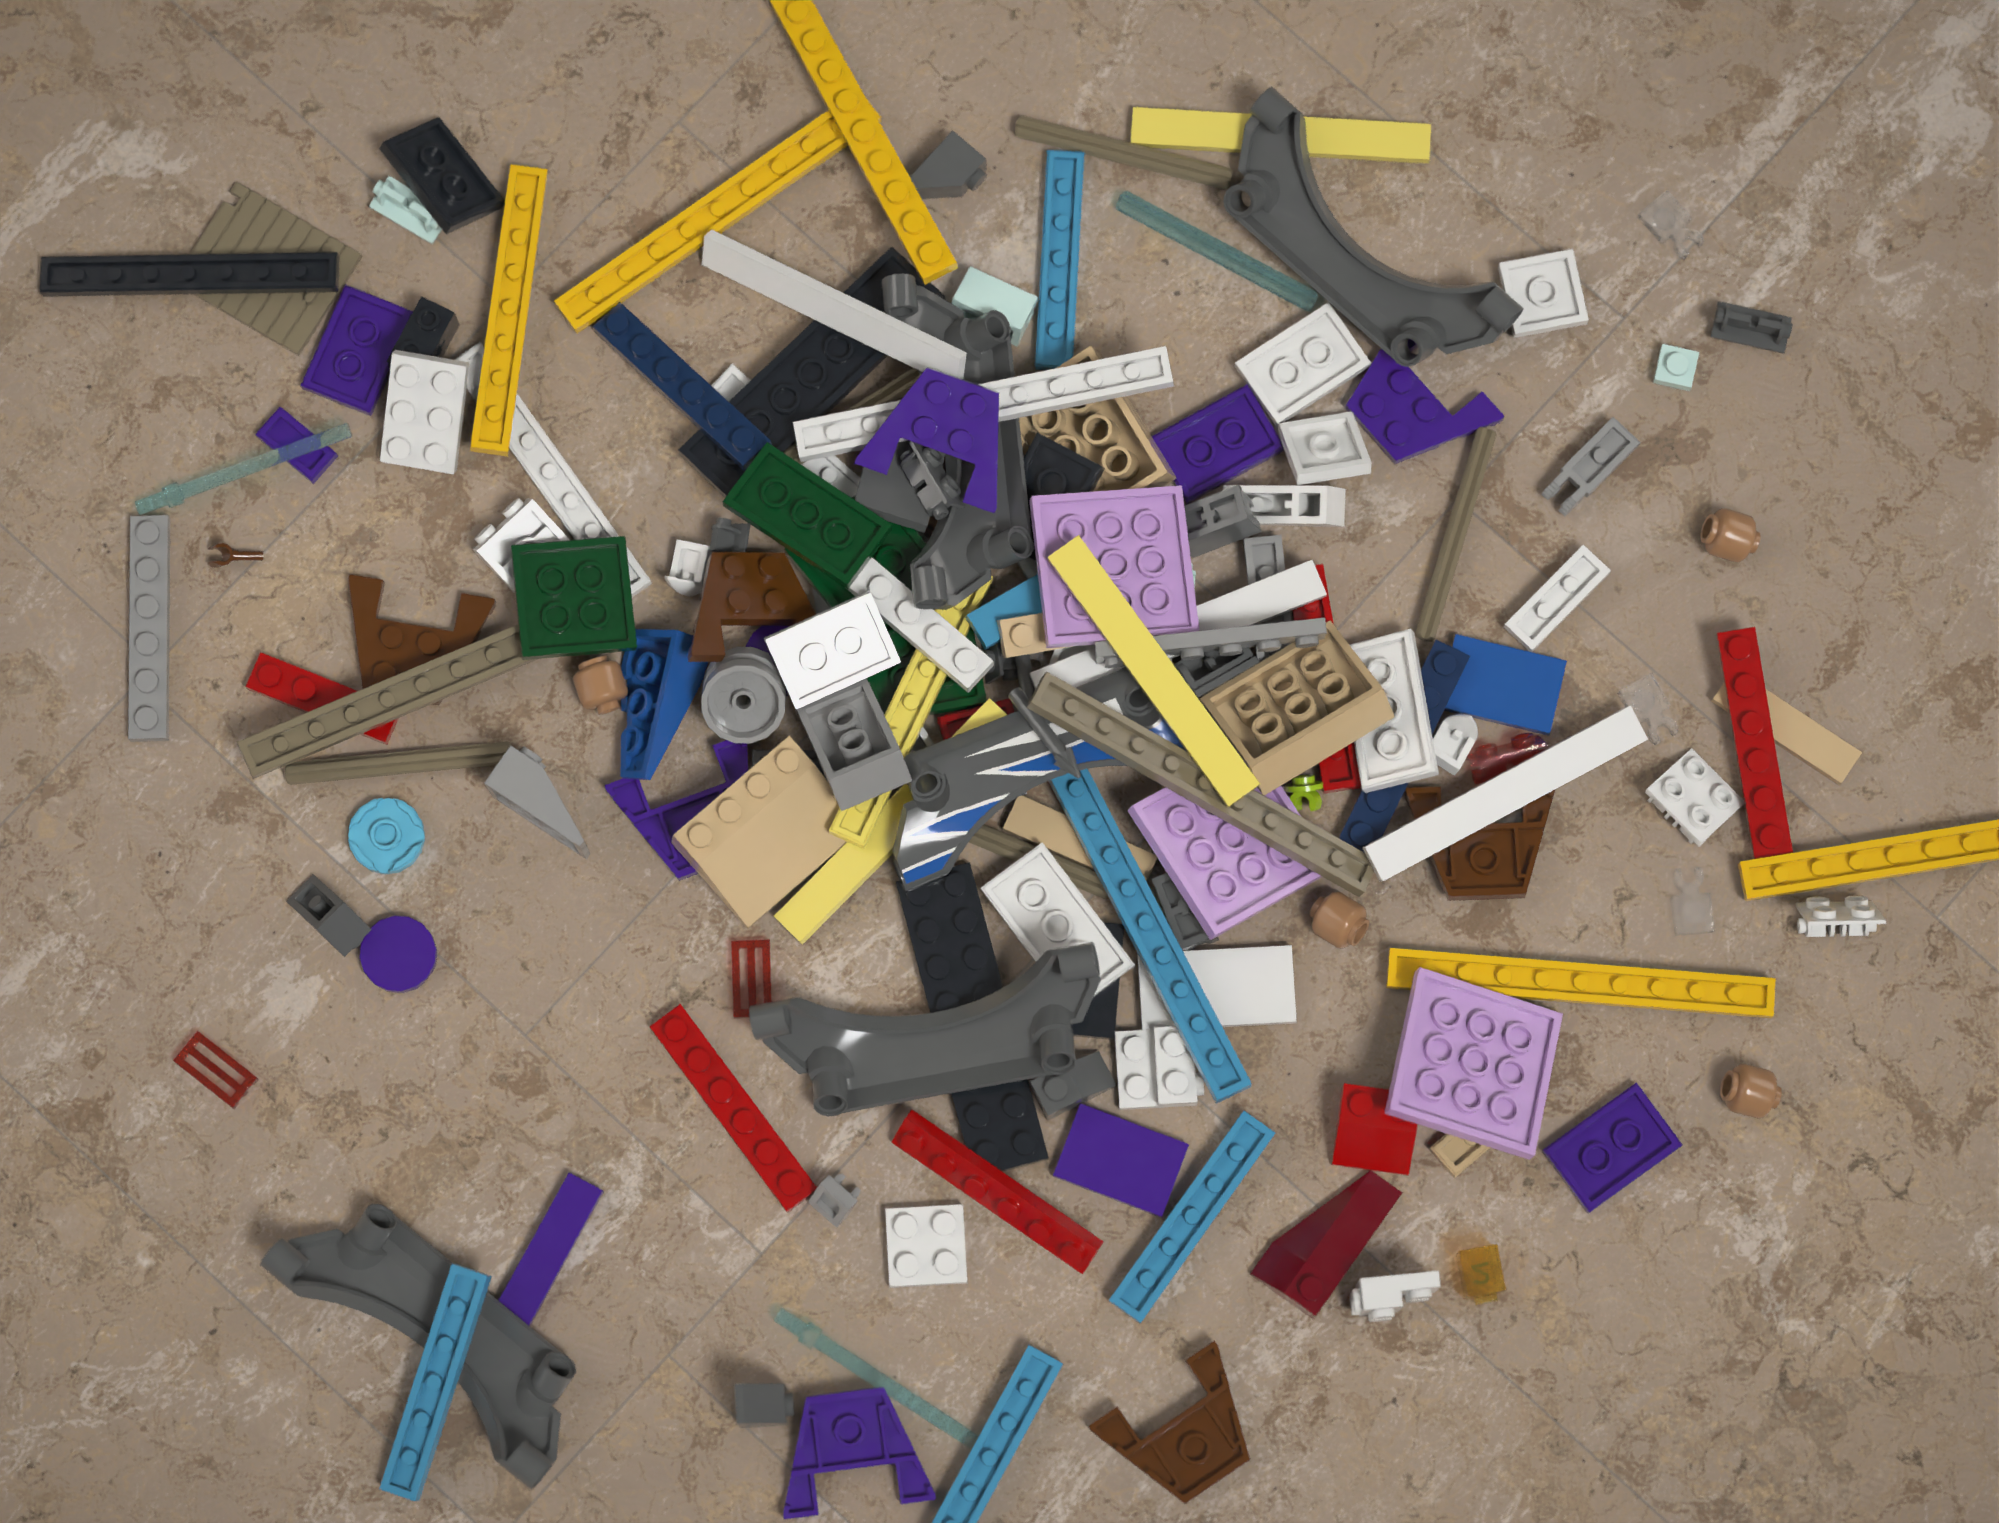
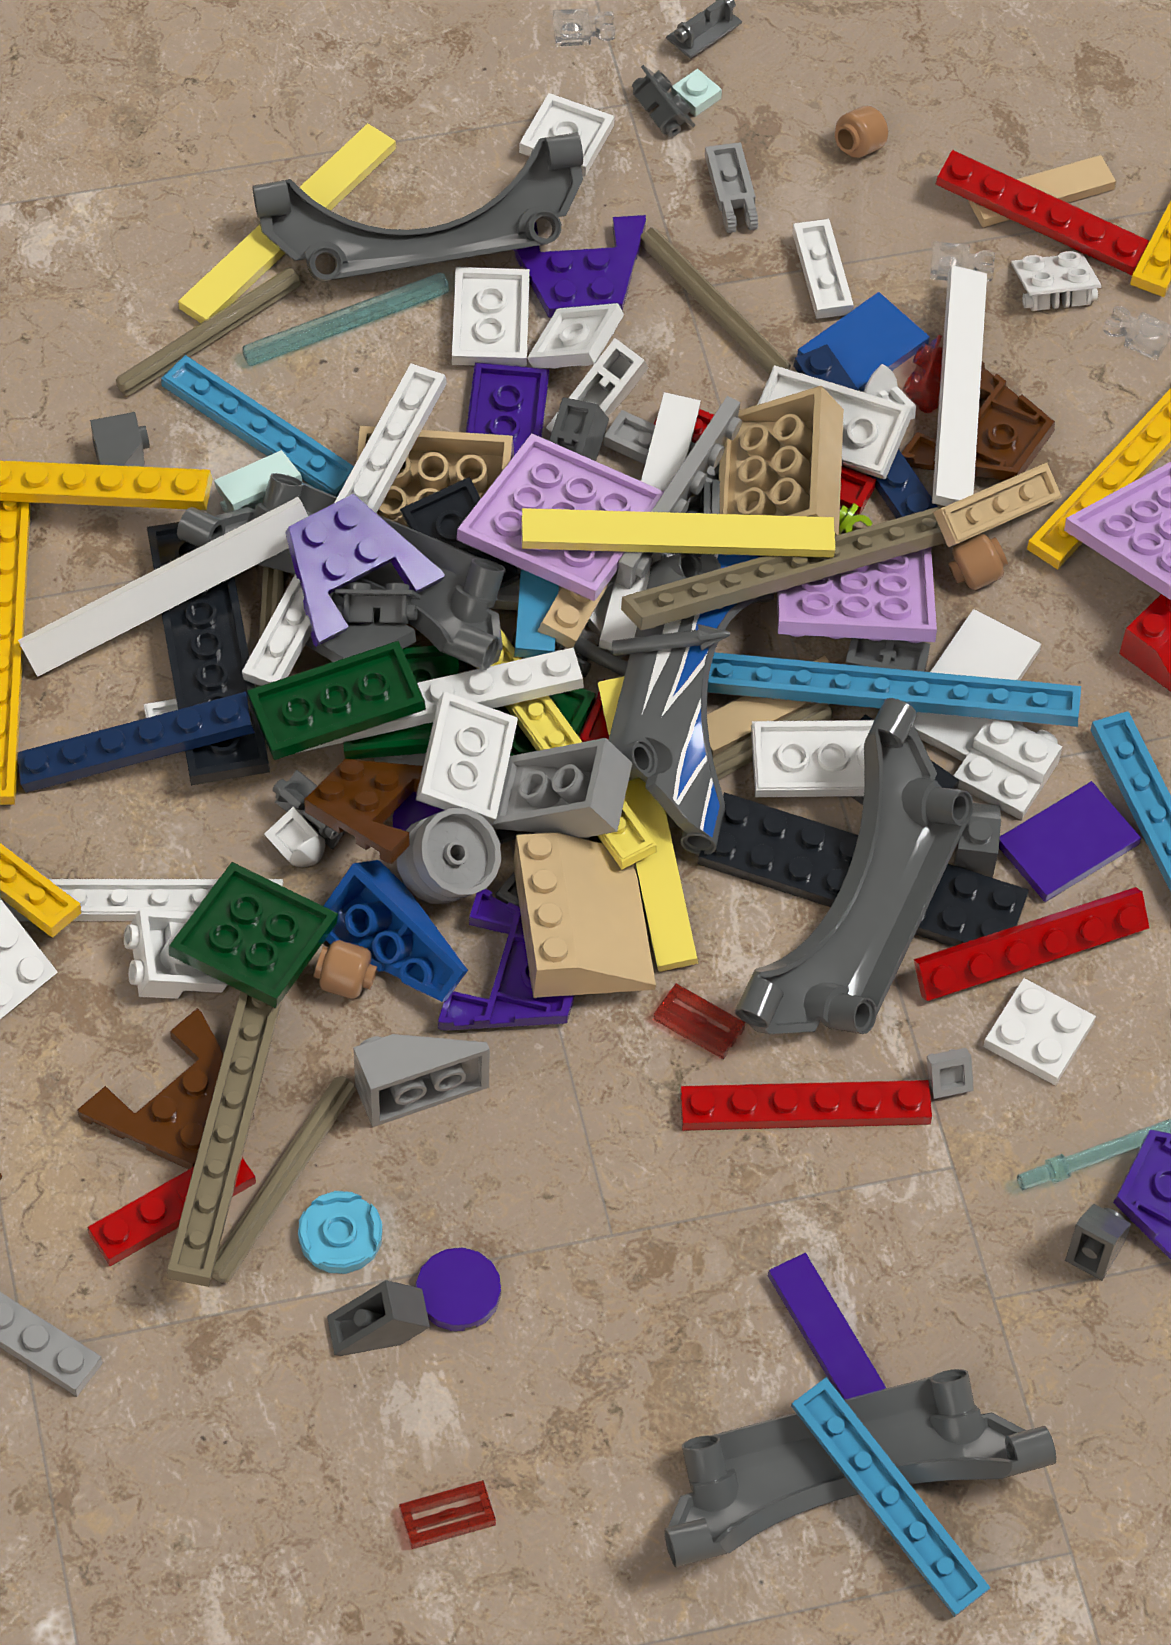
camera: 60 degrees left, 20 degrees down
(1400, 901) = (997, 504): none -> tan tile
(1647, 334) = (654, 91): none -> dark grey hinge

